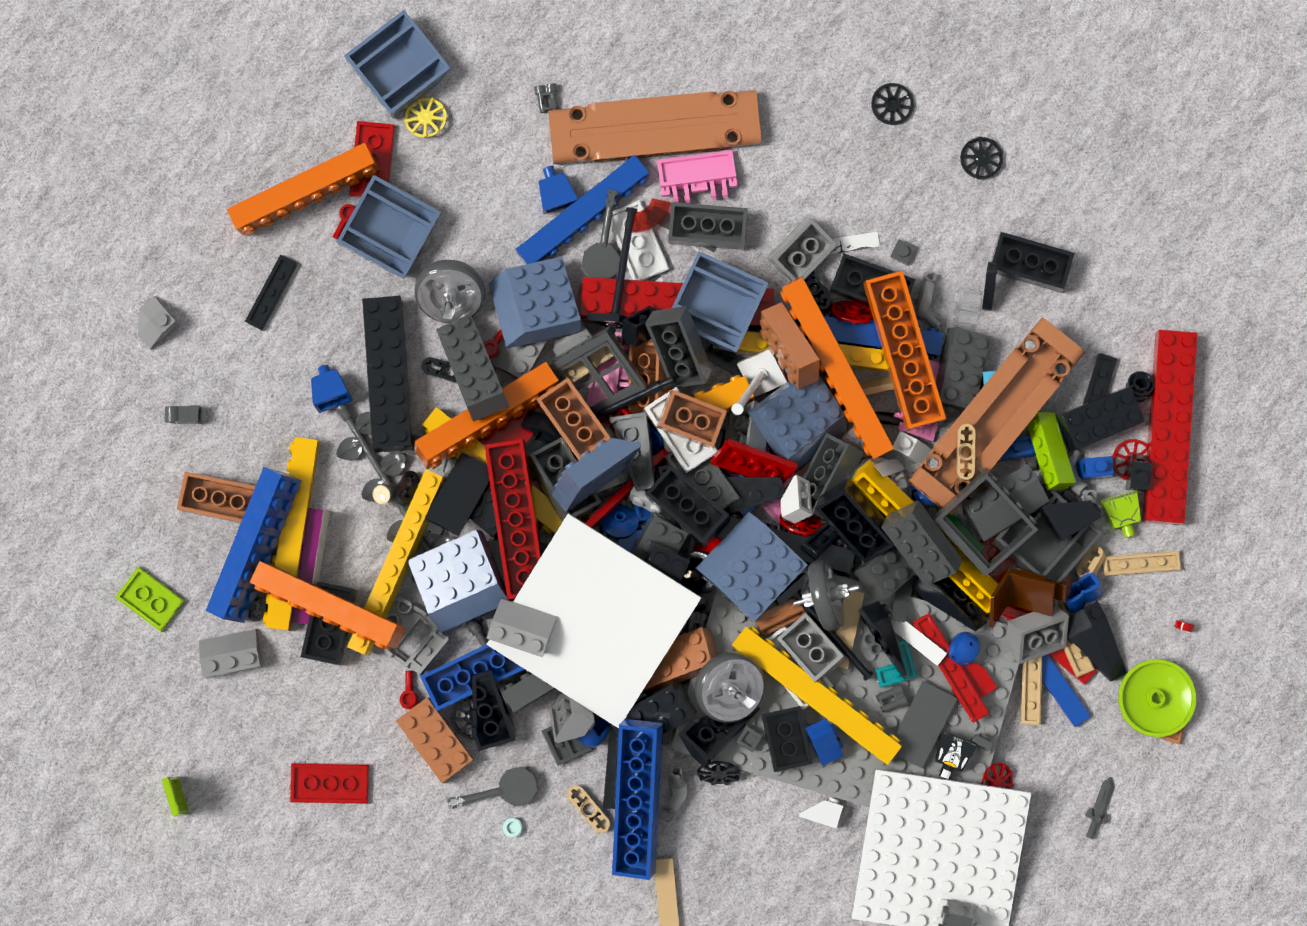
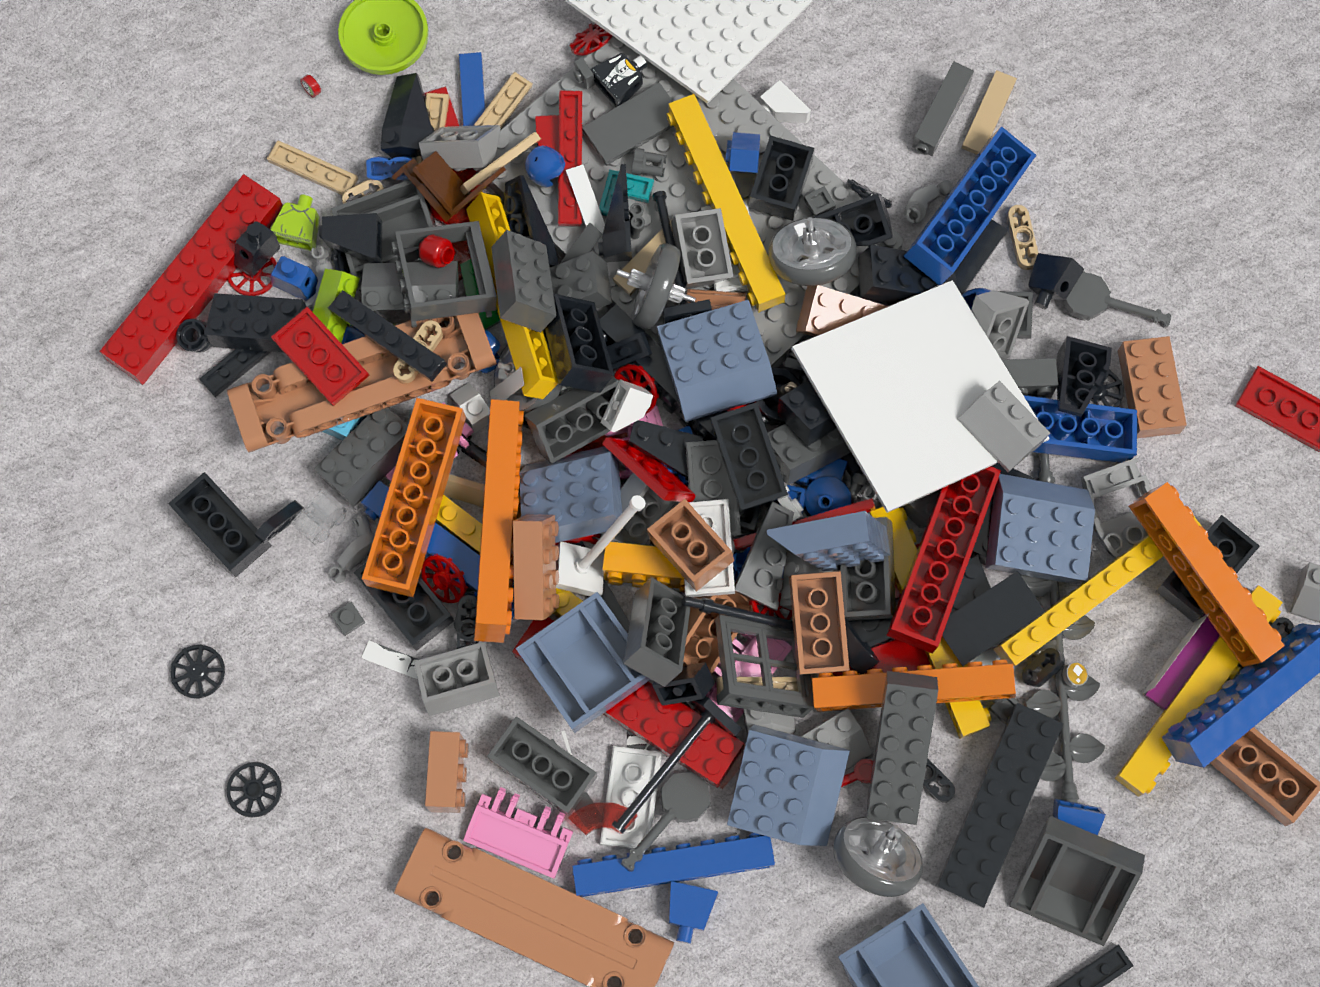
camera: 150 degrees left, 10 degrees down
(183, 414) = (1260, 896): dark grey leg -> none
(309, 351) = (1077, 880): none -> dark grey slope
(408, 698) = (1156, 446): red plate -> none
(512, 827) = (1112, 262): light aqua tile -> none
(548, 782) = (1053, 278): none -> black torso
(701, 873) = (943, 109): none -> dark grey slope
(769, 184) = (446, 772): none -> nougat brick
(994, 450) = (387, 336): none -> black plate
(999, 633) = (500, 162): none -> tan tile
(1001, 536) = (436, 251): none -> red head
(1033, 410) = (320, 356): none -> red tile

